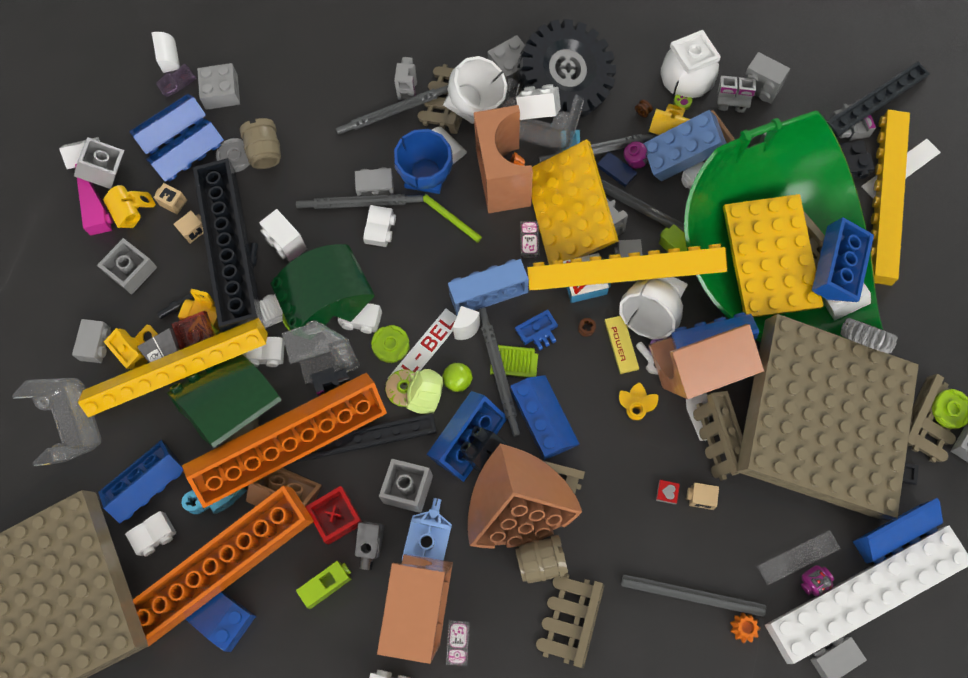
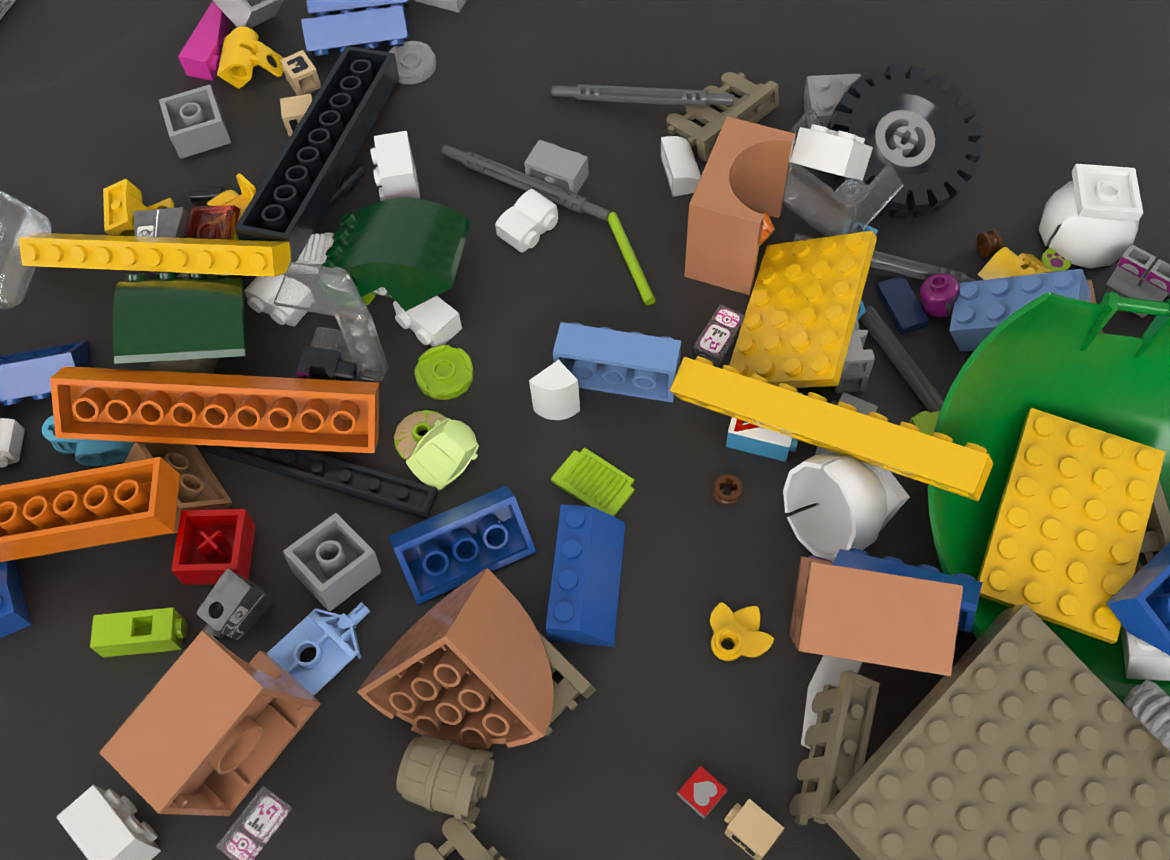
camera: 30 degrees right, 10 degrees down
(90, 341) = (86, 185): light grey brick -> none
(261, 143) = (447, 58): dark tan piece -> none
(405, 79) = (677, 62): light grey hips -> none
(424, 160) = (637, 169): blue plate -> none
(428, 344) = (488, 400): white sticker -> none
(457, 377) = (501, 459): lime hair -> none
(473, 87) = (758, 91): white plate -> none
(481, 448) = (453, 570): black hips -> none
(499, 372) = (561, 484): dark grey axle -> none
(538, 329) = (653, 455): blue hinge -> none
(621, 345) = (763, 541): light yellow tile -> none
(647, 354) = (792, 569): white bar -> none

